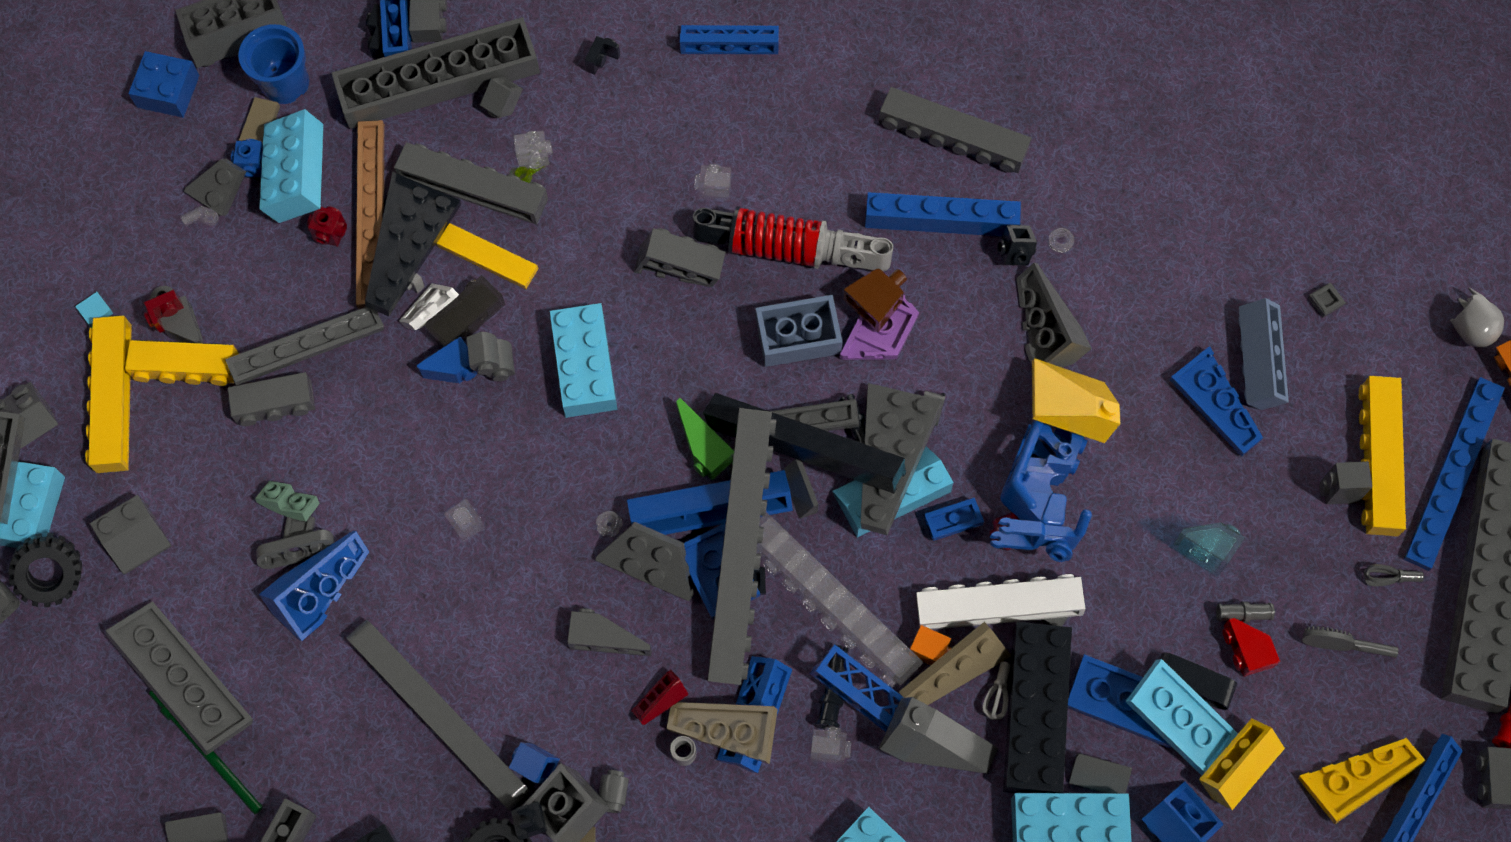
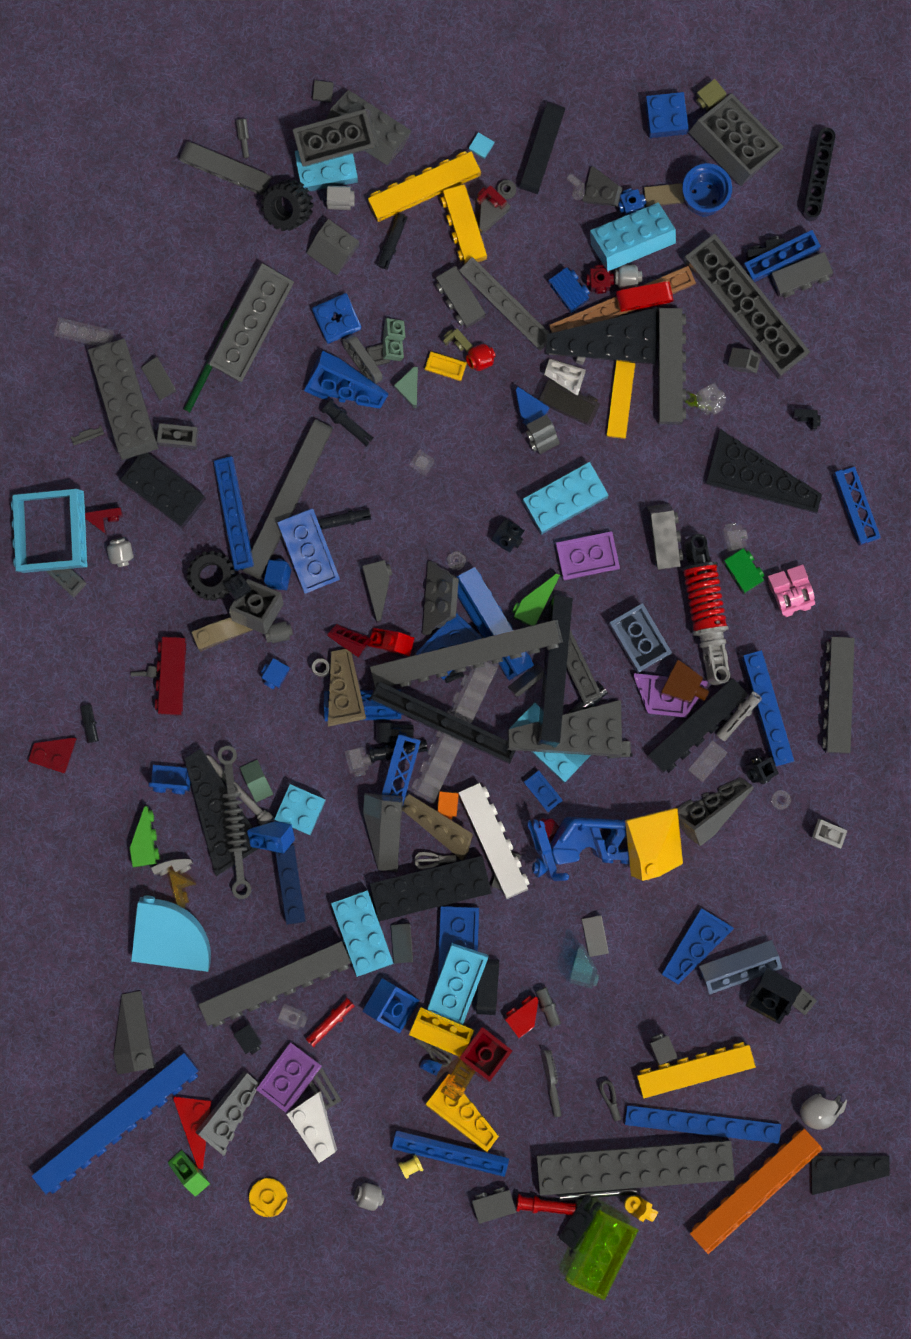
camera: 65 degrees right, 15 degrees up
(70, 499) = (340, 198): none -> light grey brick
(133, 238) = (542, 148): none -> black beam
(165, 29) = (710, 95): none -> olive brick
(167, 465) = (389, 248): none -> black pin
(237, 575) = (331, 329): none -> blue brick
(323, 267) = (569, 290): none -> blue brick
(325, 417) = (461, 342): none -> olive bracket
(339, 192) = (627, 276): none -> light grey head
(351, 450) = (445, 366): none -> yellow tile
(357, 605) = (340, 417): none -> black pin
(359, 401) = (480, 357): none -> red head
(359, 503) = (408, 387): none -> sand green slope
(371, 178) = (644, 296): none -> red beam
(425, 793) = (233, 513): none -> blue tile
(494, 651) = (345, 518): none -> black pin
(517, 709) = (308, 550): none -> blue plate
(603, 445) = (508, 535): none -> black brick
(646, 136) = (751, 474): none -> black wing
(667, 360) = (587, 556): none -> medium lavender plate
(668, 817) = (274, 674): none -> blue brick
(683, 643) = (391, 641): none -> red slope
(759, 185) = (744, 571): none -> green brick
(805, 137) = (792, 593): none -> bright pink hips
(806, 690) = (389, 732): none -> black piece
(817, 610) = (442, 722): none -> black tile
(935, 303) = (698, 725): none -> black brick
(936, 238) = (744, 710): none -> light grey pin
(983, 307) = (707, 761): none -> clear plate
(1121, 199) = (829, 834): none -> light grey slope
(1165, 518) = (595, 936): none -> light grey slope
(1260, 788) = (432, 1049): none -> dark grey piece
(1285, 795) = (431, 1066): none -> blue tile
(1294, 712) = (485, 1055): none -> dark red slope
(1314, 325) = (773, 996): none -> black brick
(1326, 776) = (452, 1089): none -> clear yellow slope

